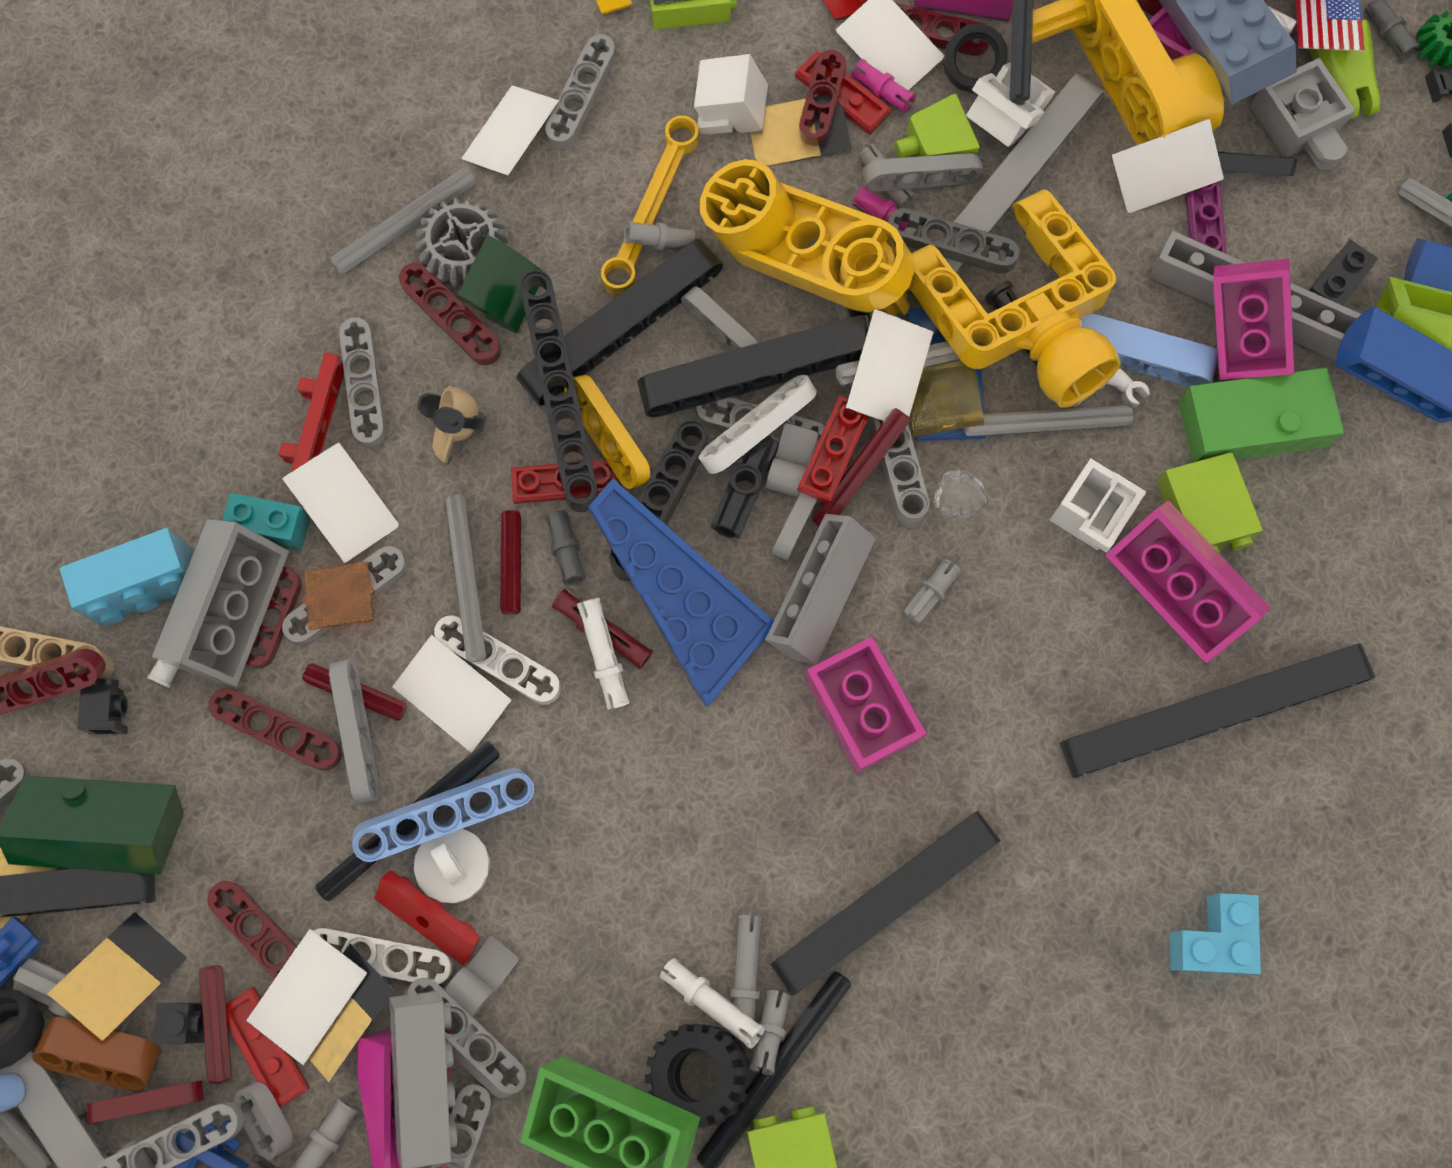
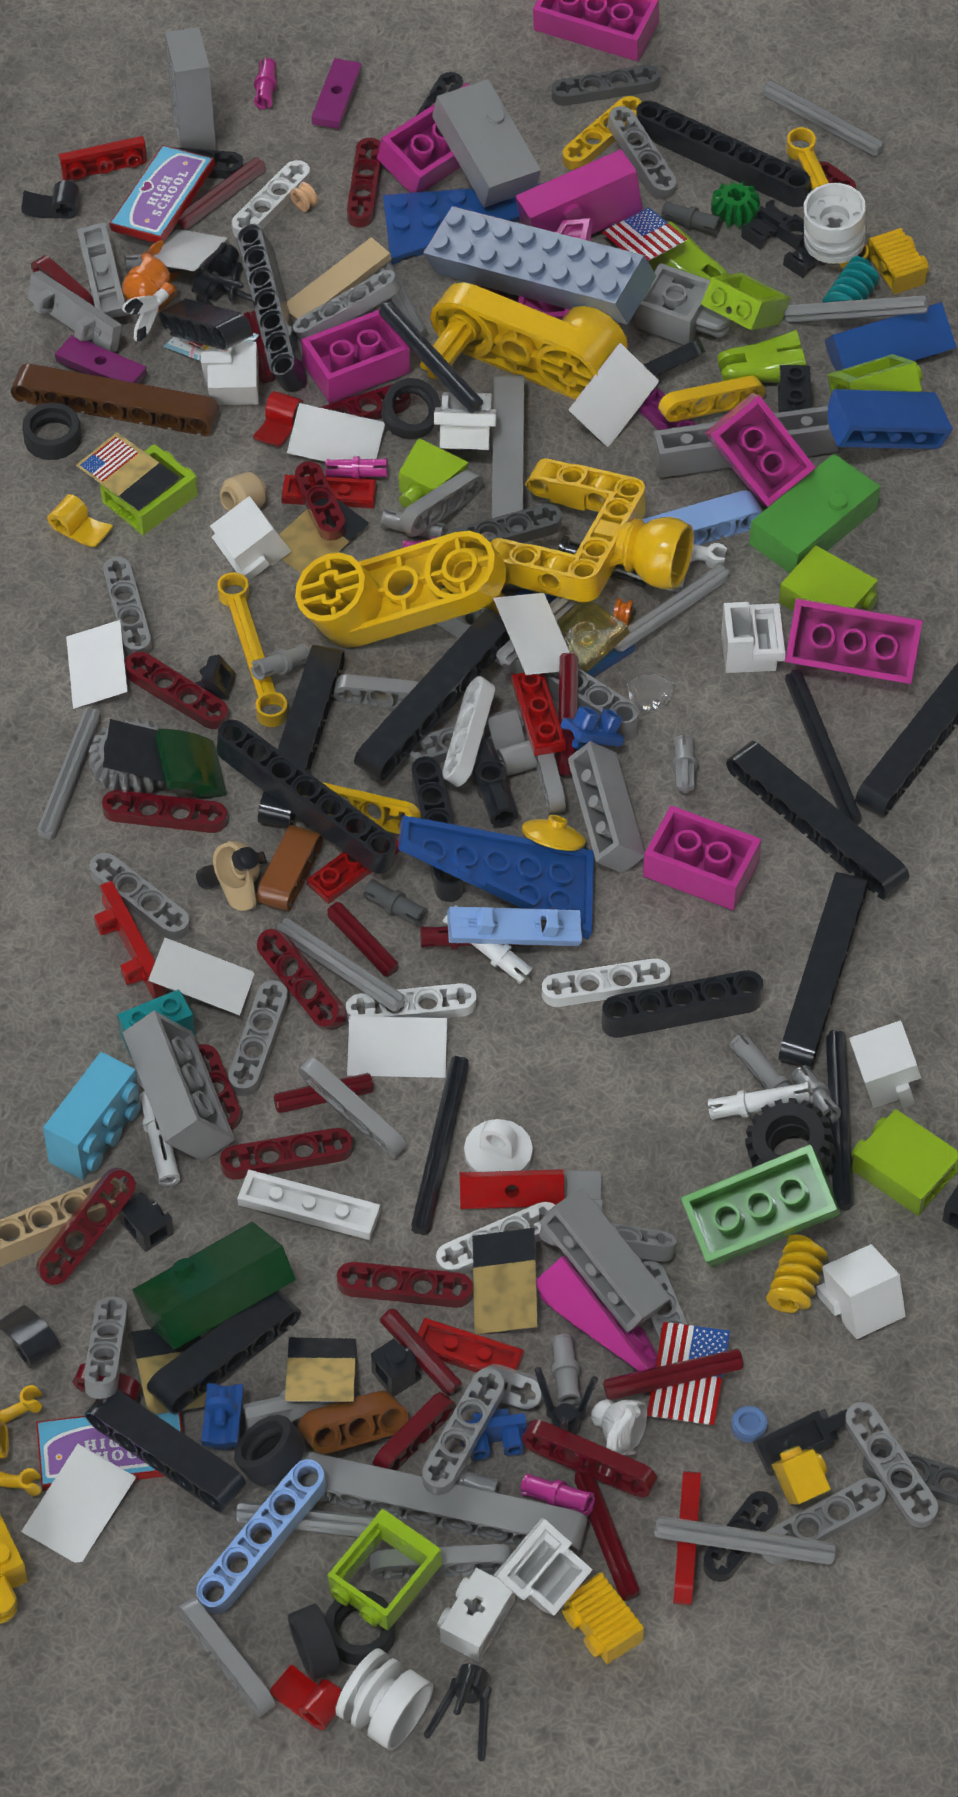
camera: 35 degrees left, 20 degrees down
(249, 797) = (309, 1205): none -> white plate
(306, 996) = (472, 1287): white sticker -> none
(338, 595) = (256, 1035): clear orange piece -> none
(430, 516) = (303, 976): none -> dark red beam
(430, 829) = (456, 1121): light blue beam -> none
(452, 240) = (133, 750): none -> black sticker
(501, 446) = (288, 867): none -> dark orange beam
(557, 201) = (180, 687): none -> dark red beam
(596, 214) = (217, 677): none -> black tile
(633, 657) = (514, 926): none -> light blue hinge
(680, 768) = (604, 978): none -> white beam
(713, 828) = (695, 994): none -> black beam
(752, 582) = (553, 833): none -> yellow dish
(764, 44) = (240, 487): none -> tan head
(852, 1058) = (886, 1064): none -> white plate
(867, 505) = (587, 728): none -> blue hips
(1001, 394) = (623, 610): none -> orange bush
(1008, 741) = (818, 818): none -> black beam
(1073, 666) = (822, 745): none -> black axle
(1258, 229) = (681, 403): none -> yellow beam
(1340, 219) = (762, 358): none -> lime piece
(1366, 137) = (751, 301): none -> lime window

